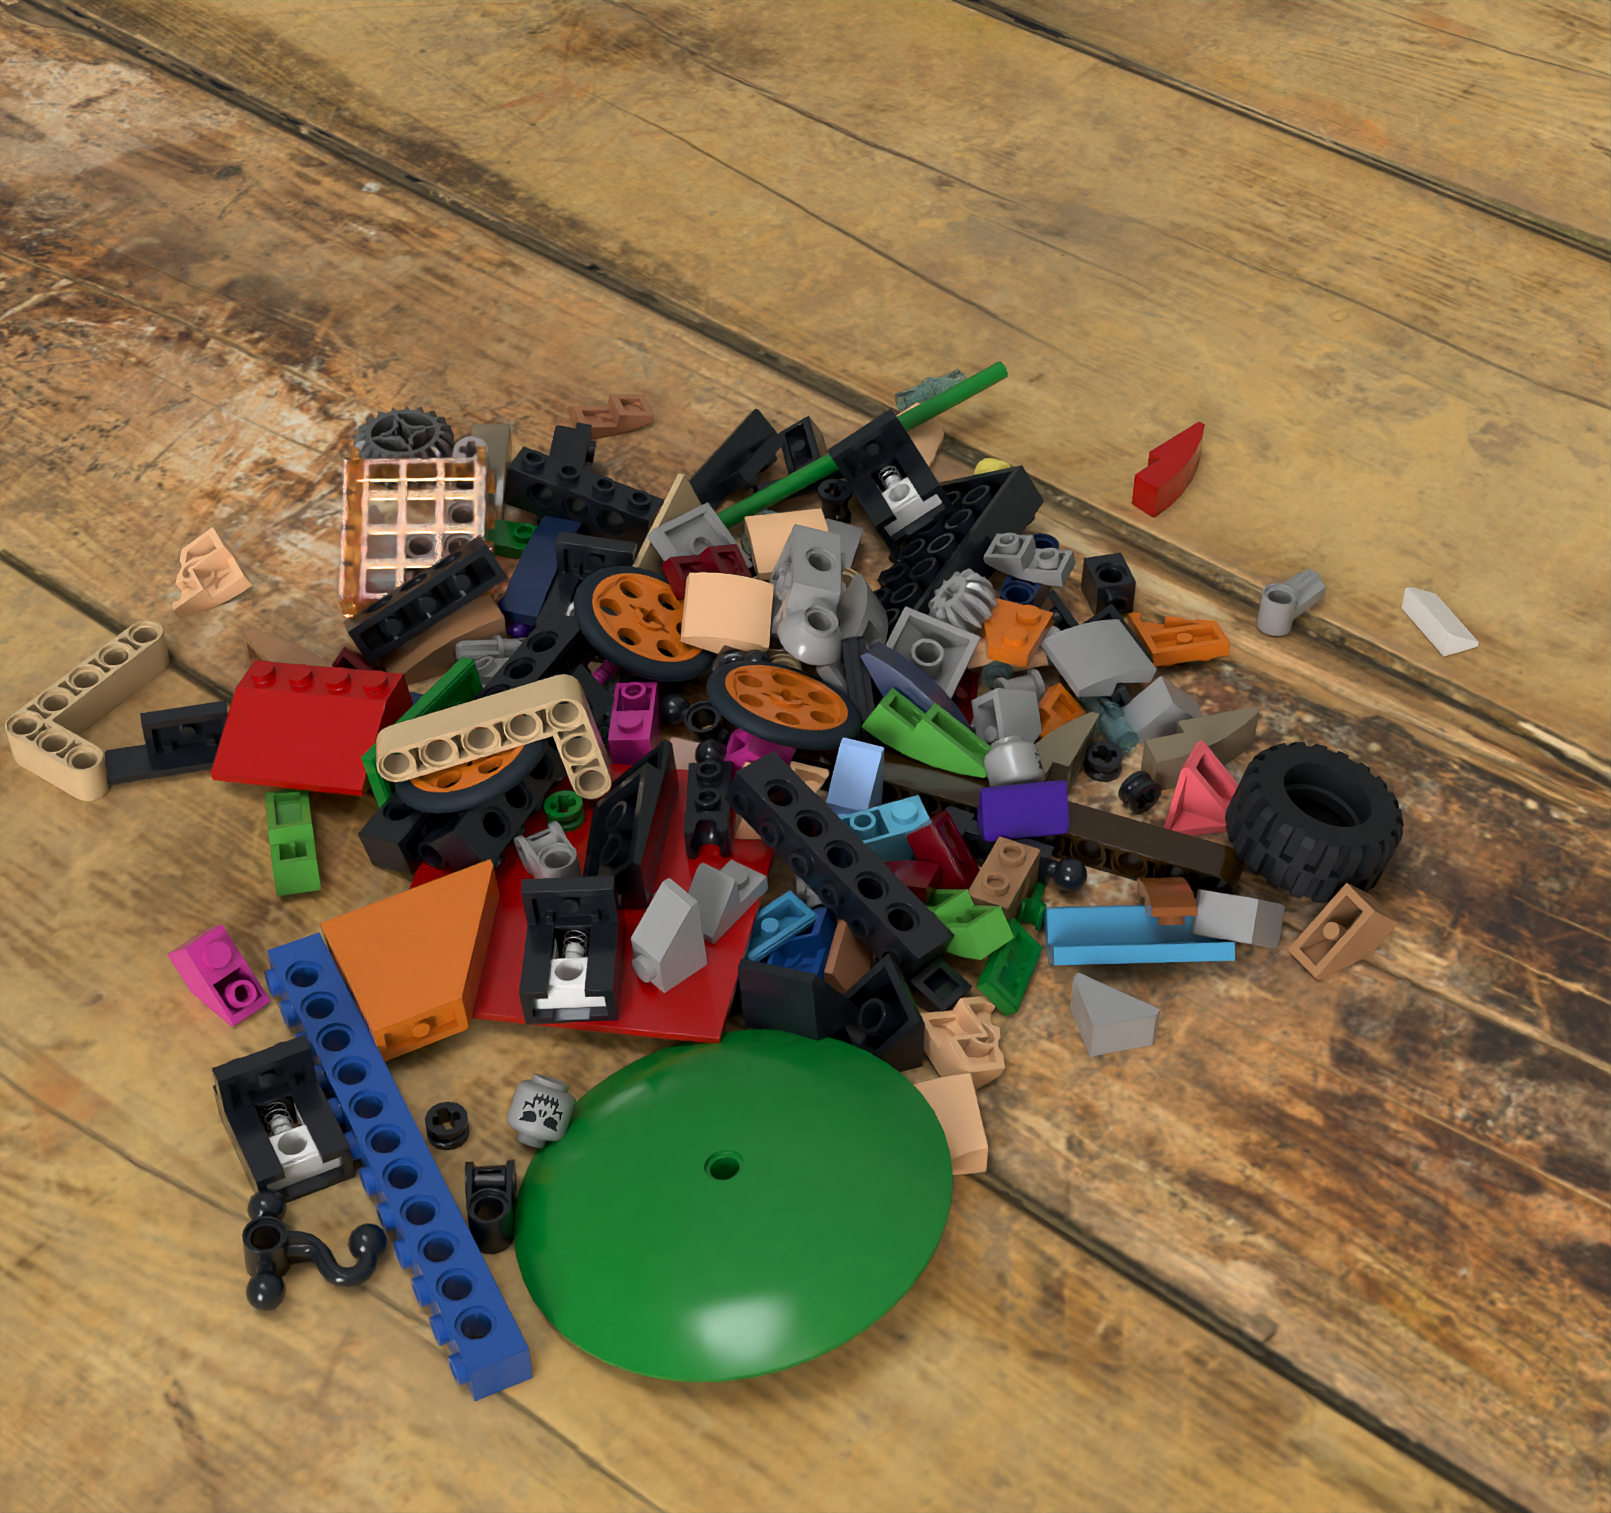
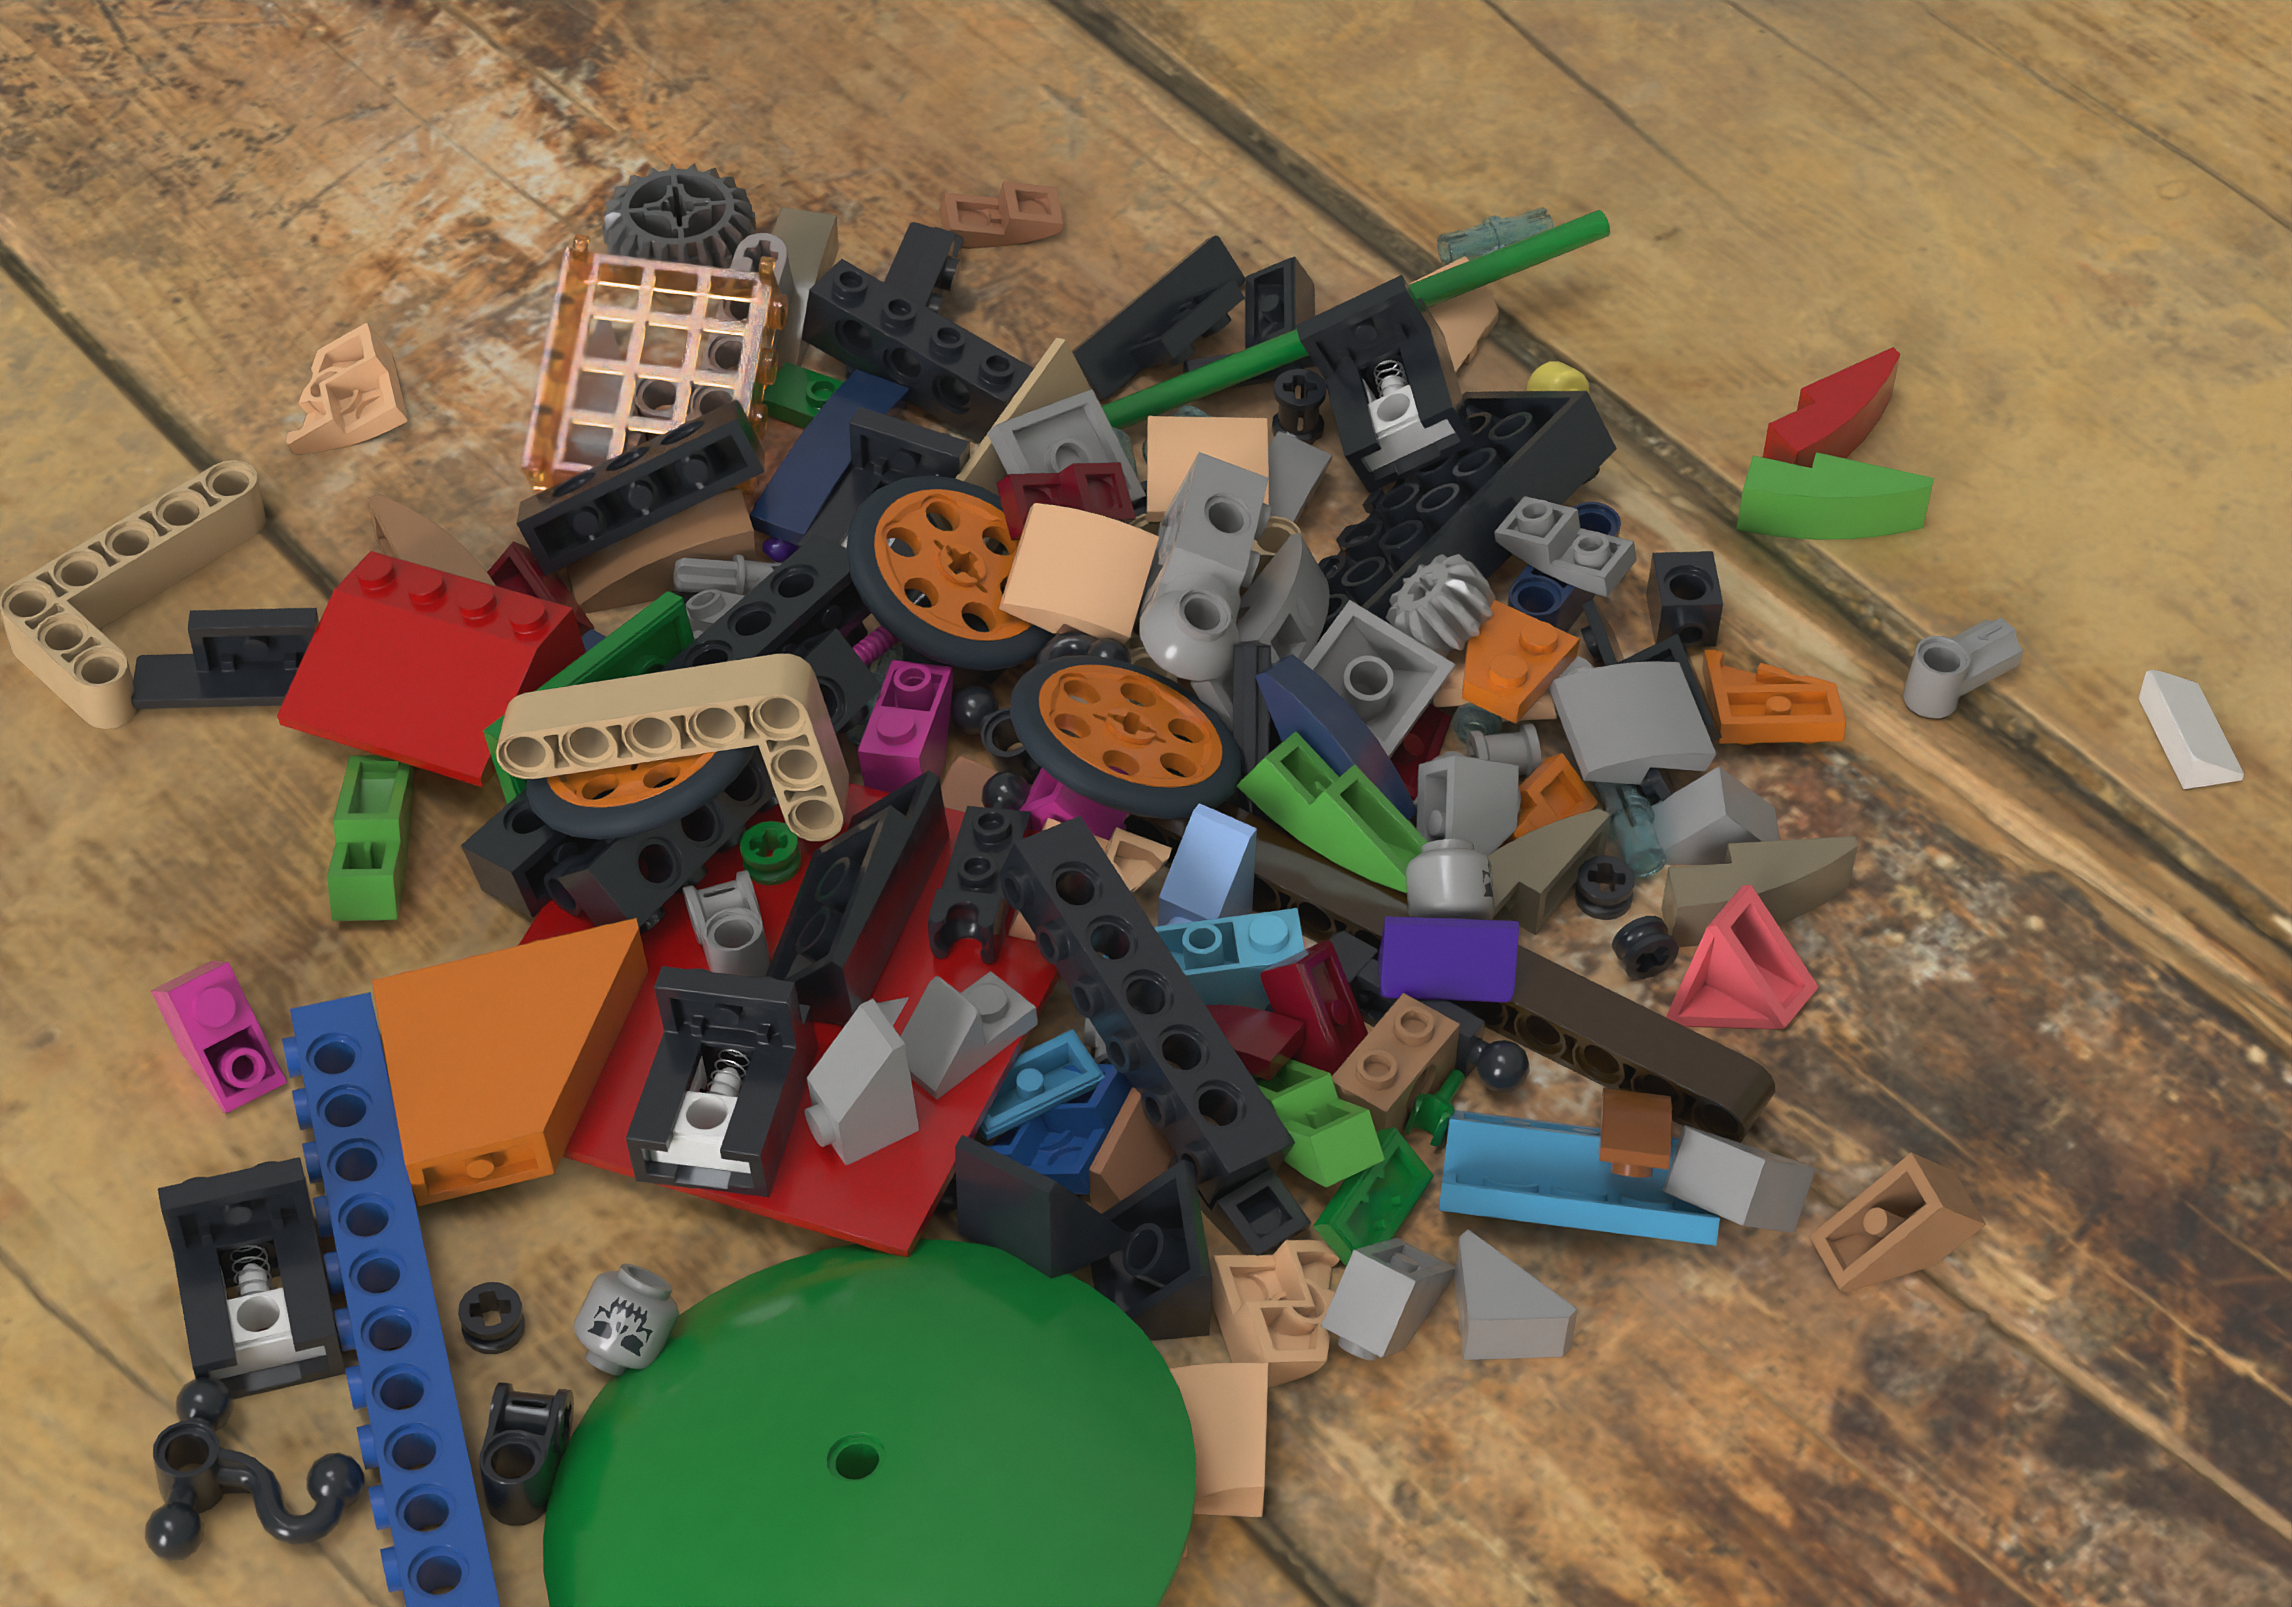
camera: 10 degrees right, 5 degrees up
(1032, 1025) = (1385, 1297): none -> light grey slope
(1183, 515) = (1831, 499): none -> bright green slope
(1313, 821) = (1924, 994): black tyre -> none

